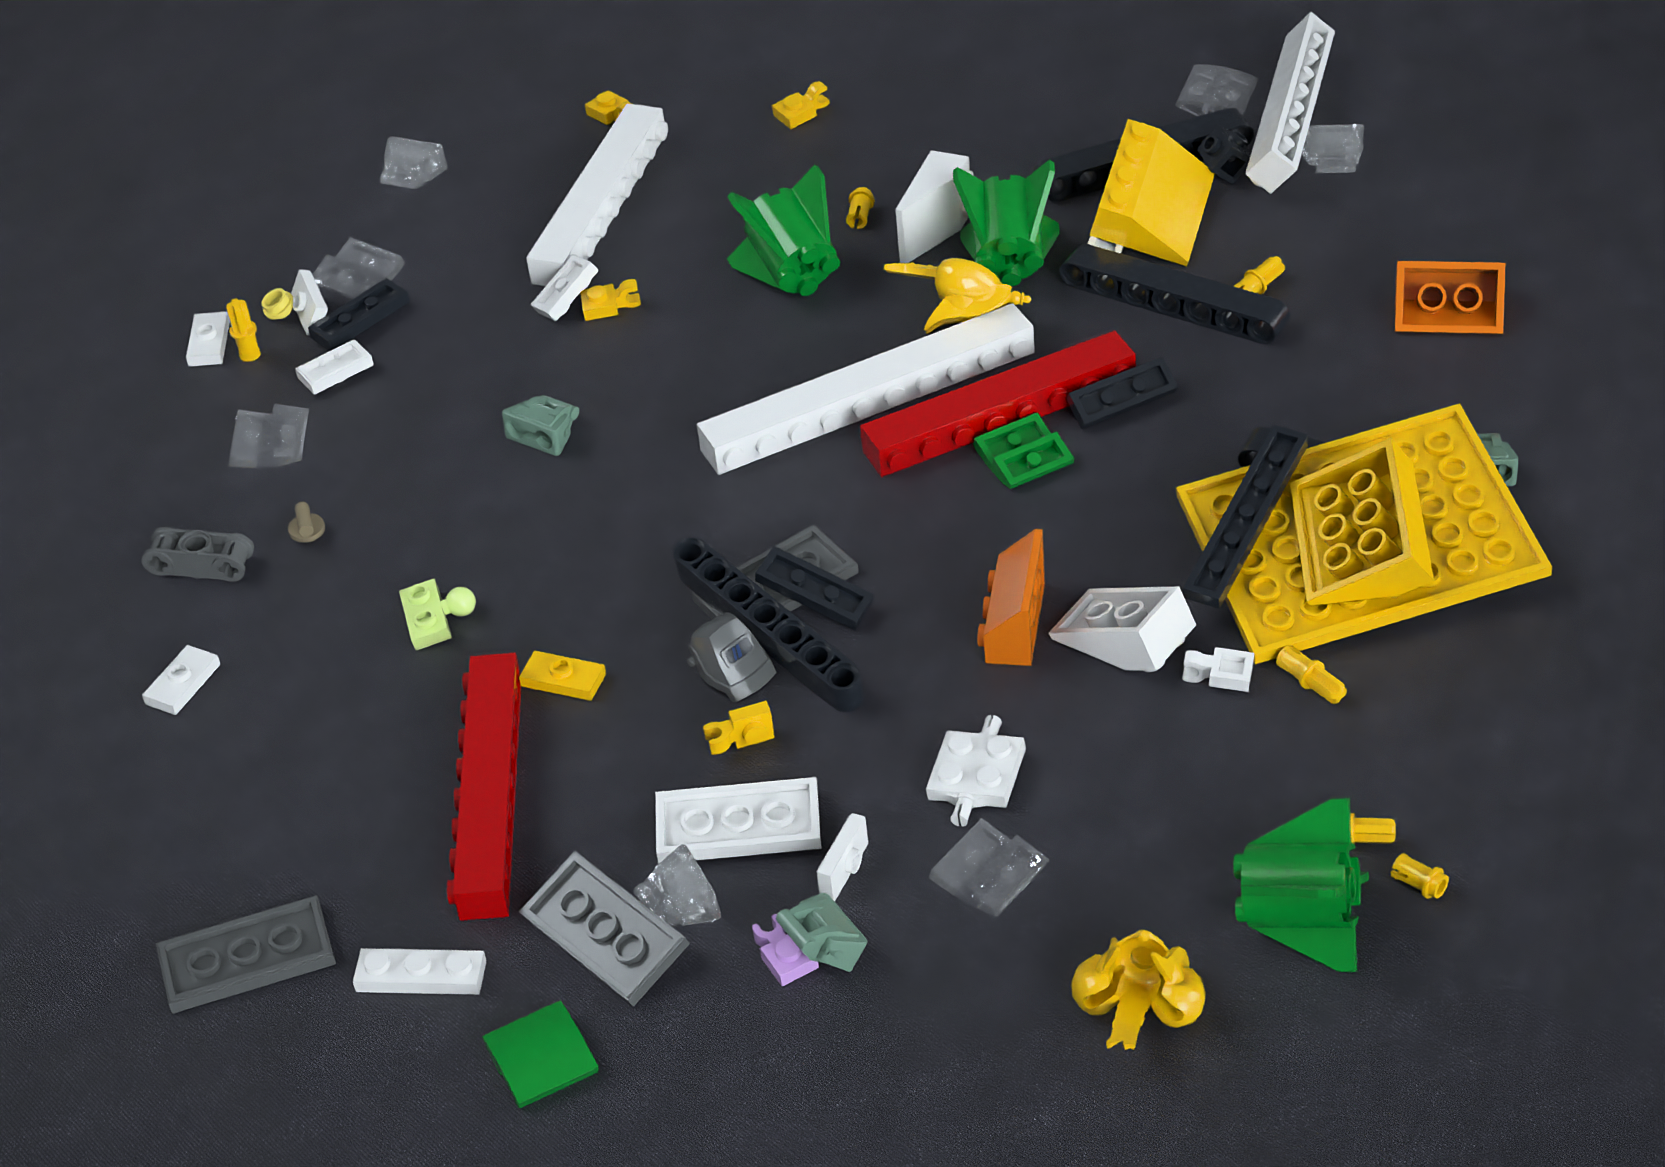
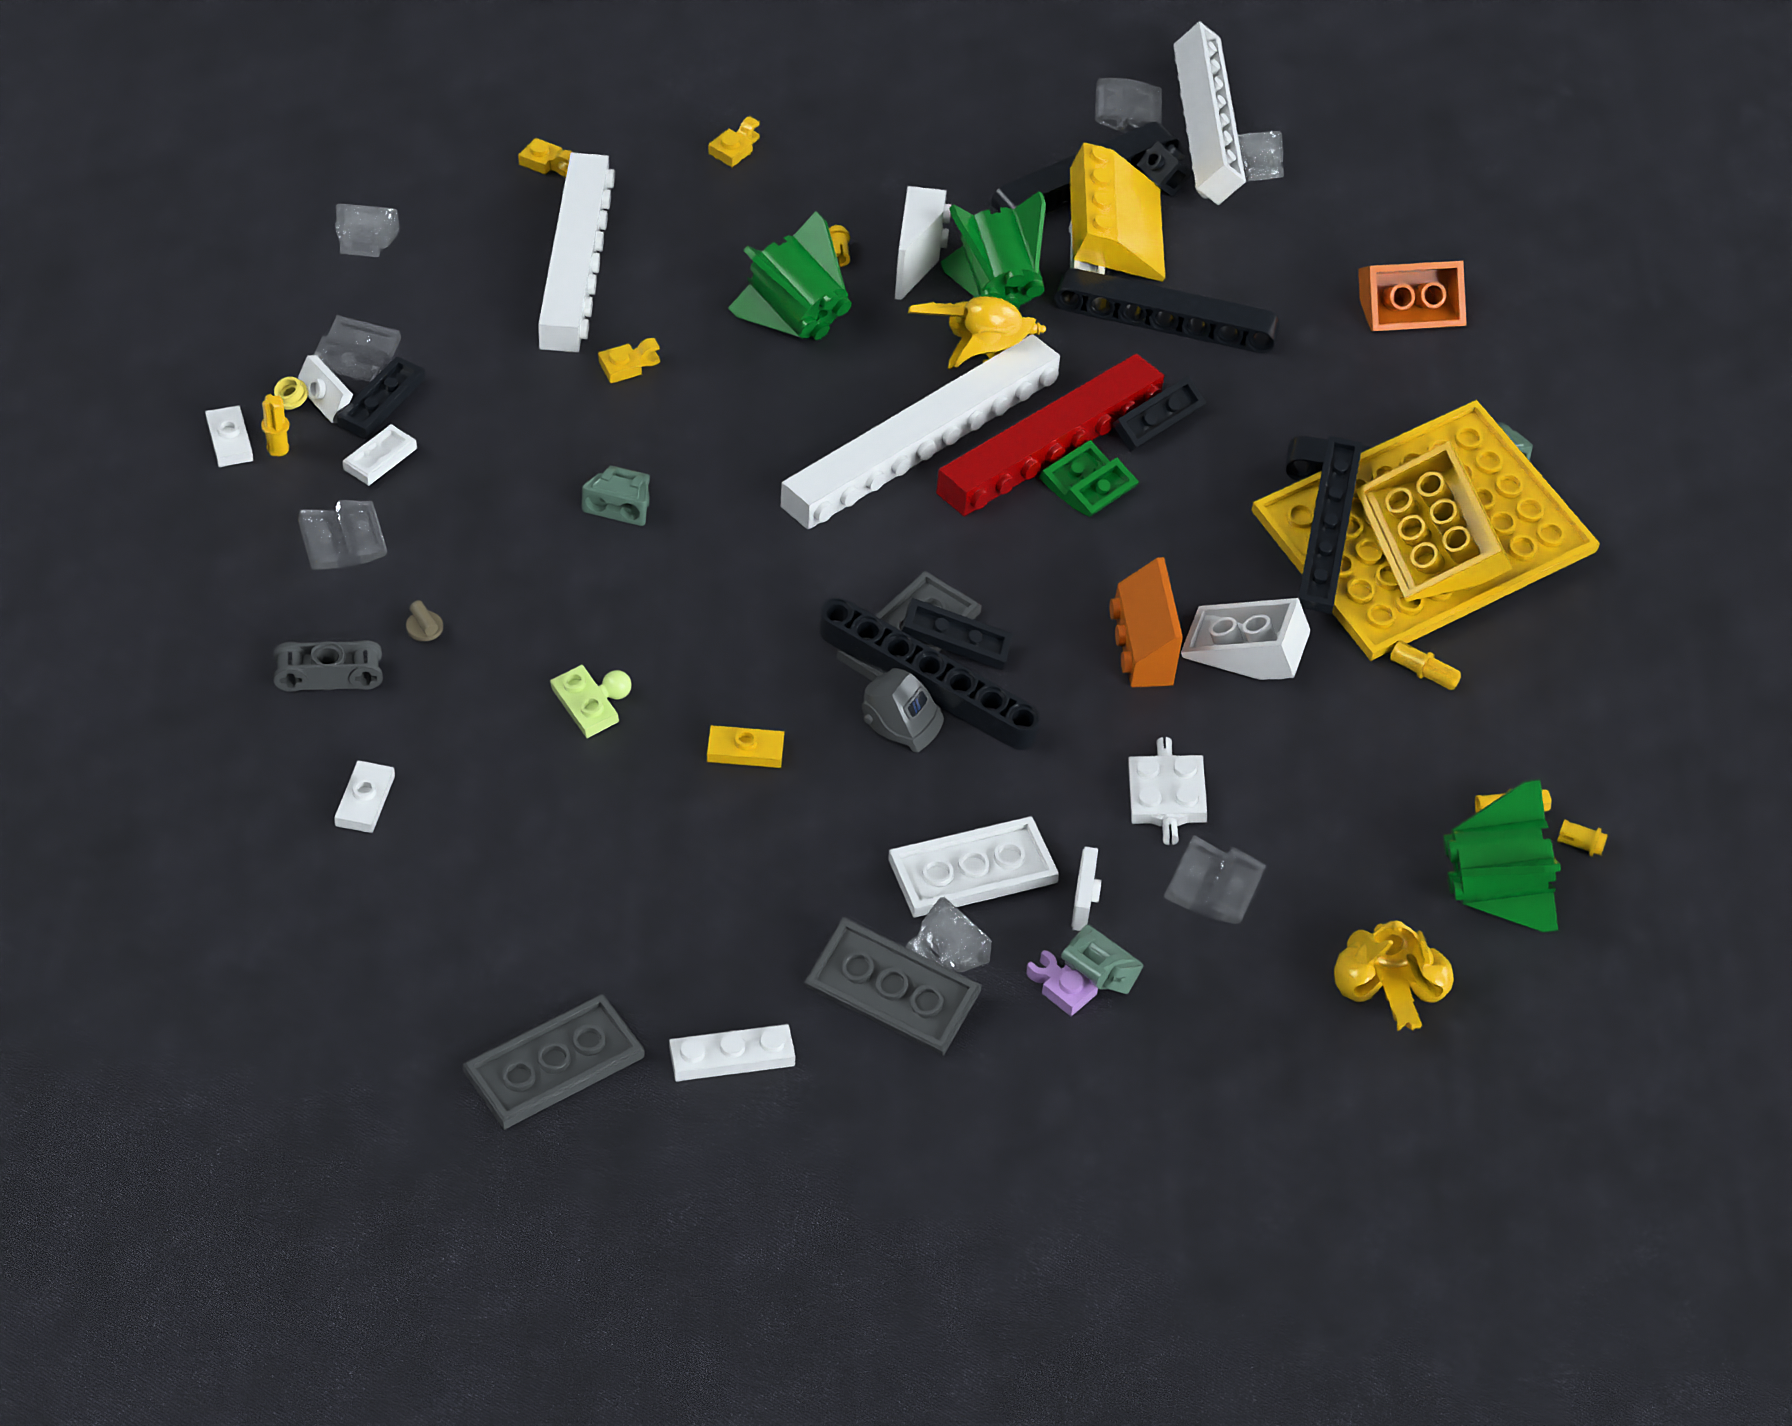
camera: 25 degrees left, 5 degrees up
(487, 788) = (724, 865): red brick -> none
(540, 1054) = (882, 1112): green slope -> none
(564, 287) = (585, 352): white plate -> none
(744, 728) = (945, 776): yellow plate -> none
(1225, 669) = (1350, 668): white plate -> none
(1258, 278) = (1238, 289): yellow axle -> none

